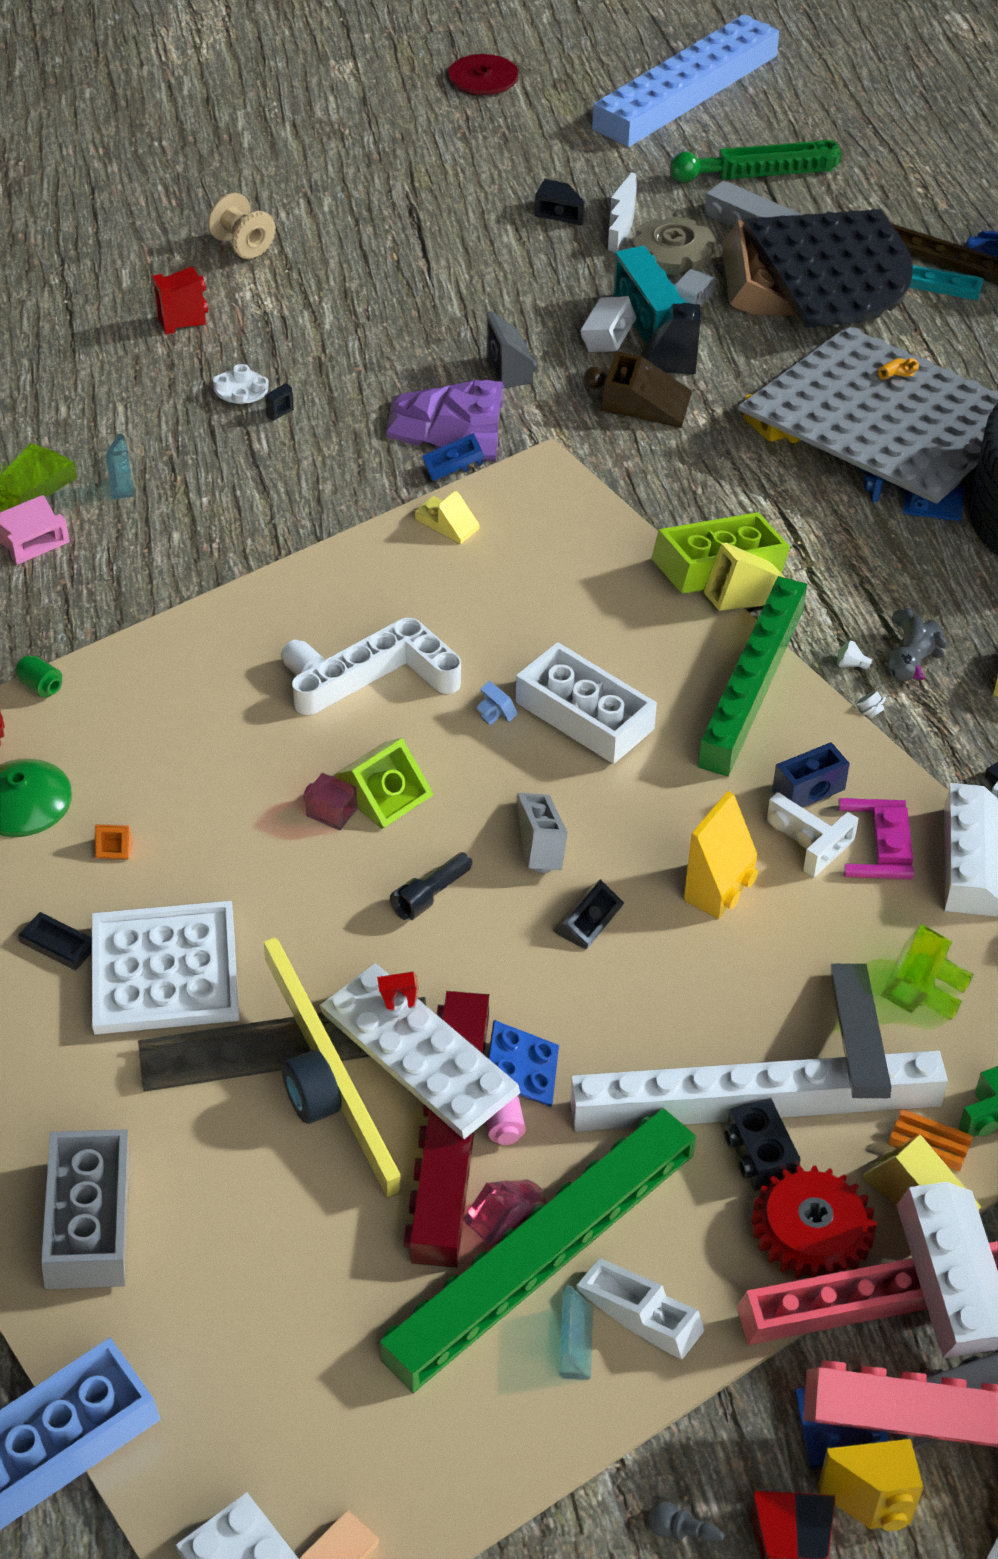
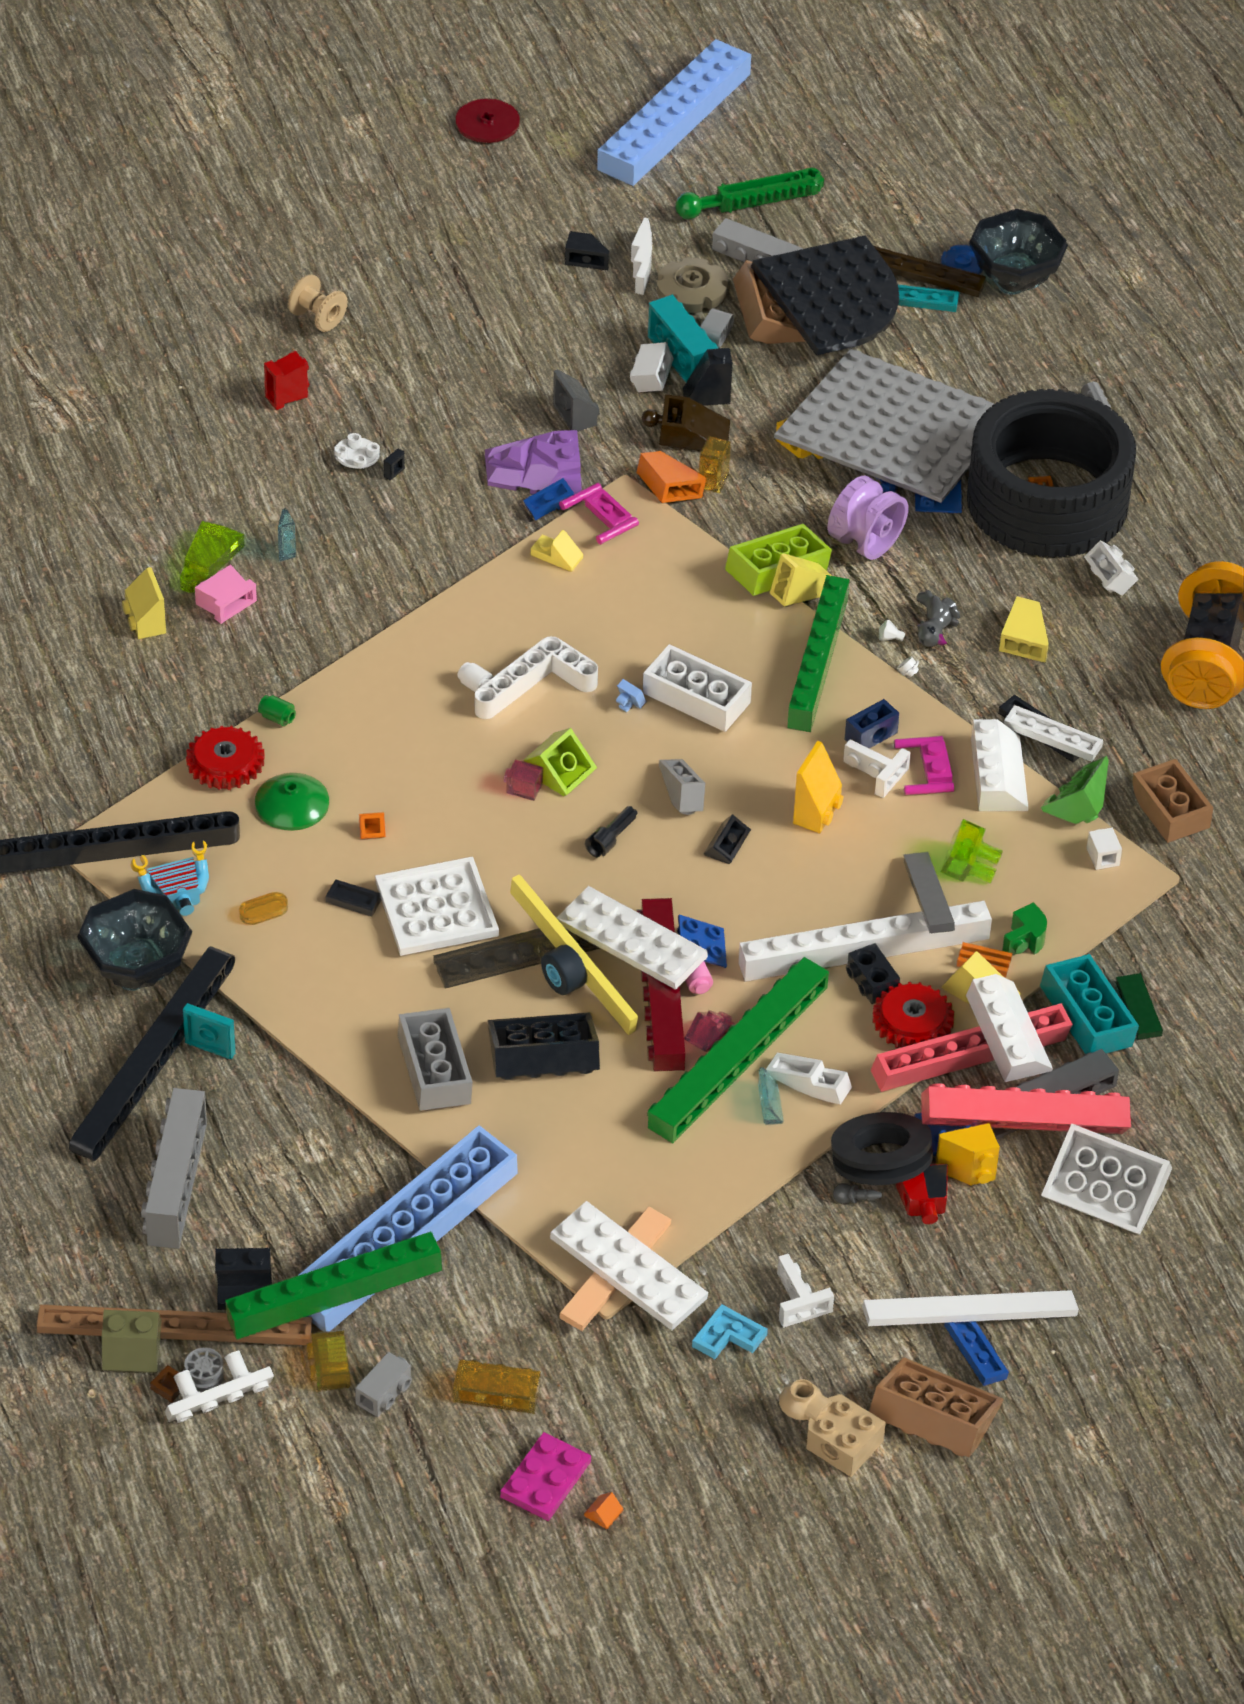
camera: 10 degrees left, 0 degrees up
(254, 1203) = (544, 1045): none -> black slope
(403, 983) = (614, 894): red tile -> none
(518, 474) = (606, 509): none -> dark pink plate
(605, 446) = (669, 478): none -> orange slope
(661, 435) = (715, 463): none -> clear yellow brick
(734, 1497) = (882, 1167): none -> black tyre
(842, 511) = (868, 517): none -> lavender piece
(898, 367) = (897, 385): light orange arm -> none

